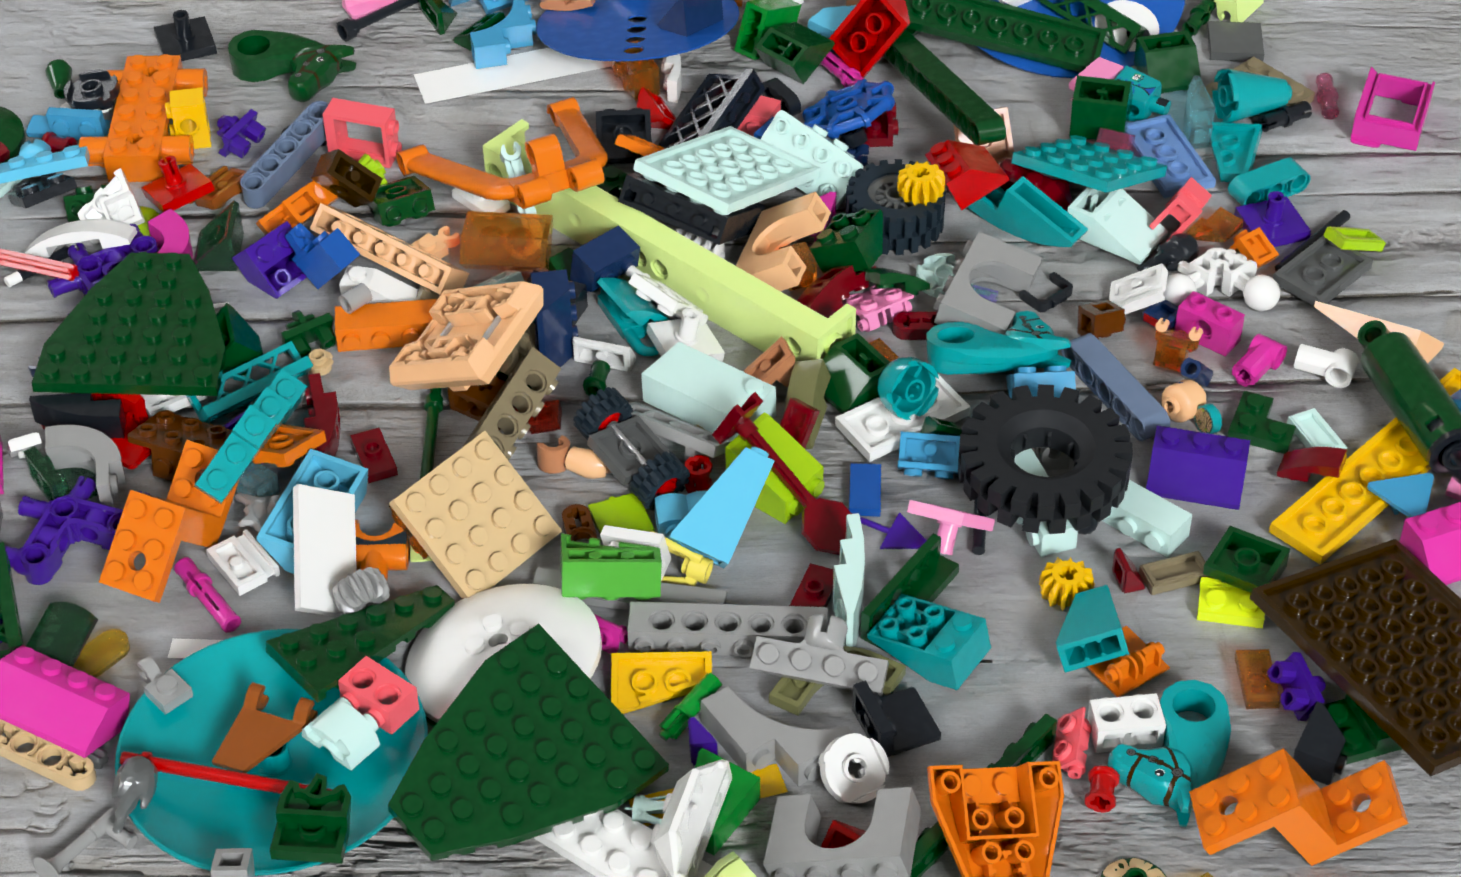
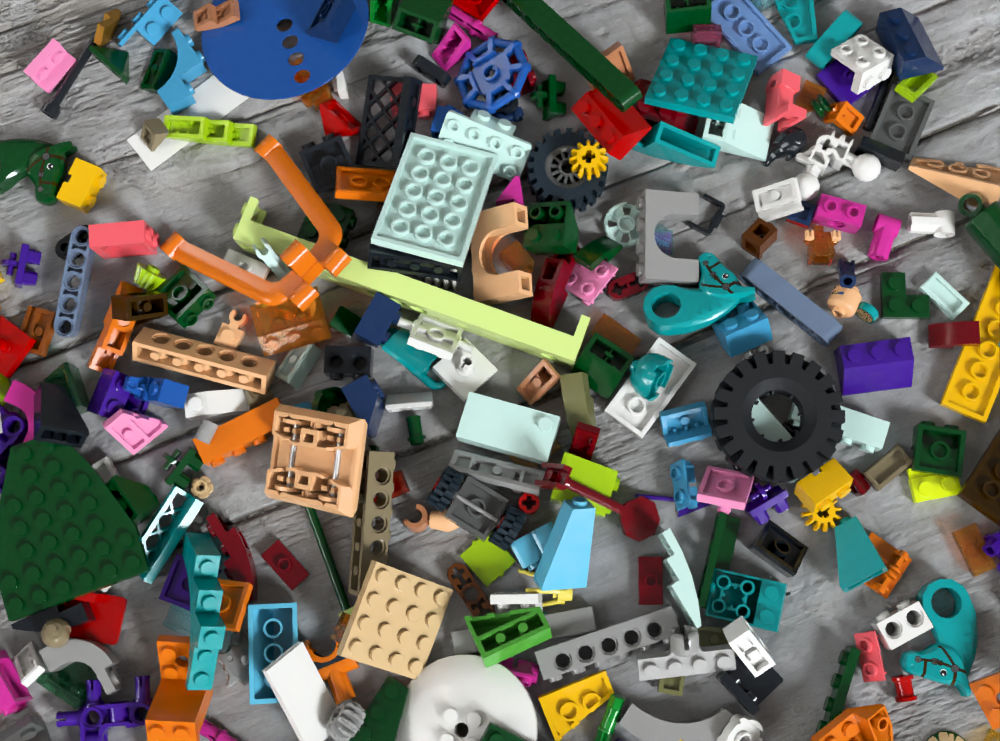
camera: 15 degrees left, 35 degrees up
(77, 407) = (56, 633): none -> dark tan piece
(167, 435) = (147, 614): reddish brown bracket -> none
(199, 240) = (57, 417): none -> black slope
(243, 562) = (235, 706): white plate -> none
(273, 284) = (134, 429): none -> bright pink wing
(348, 83) = (83, 186): none -> yellow brick
(445, 69) = (153, 133): none -> dark tan slope
(500, 82) = (210, 132): none -> lime slope
(816, 82) = (452, 48): none -> dark pink slope
(865, 489) = (648, 468): blue tile -> none
(896, 517) = (682, 474): none -> dark azure hinge
(907, 662) = (748, 646): none -> white brick
(908, 148) = (546, 98): none -> dark green hips
(939, 426) = (686, 398): dark green slope -> none
(990, 600) = (779, 549): none -> black slope
(999, 550) = (764, 498): none -> dark purple hips
(1076, 542) = (820, 490): none -> yellow brick
(1226, 226) = (820, 105): none -> dark green bush
(1293, 292) = (888, 156): none -> black slope
(1296, 202) = (866, 59): none -> white bracket
(1355, 199) = (908, 42): none -> dark blue slope

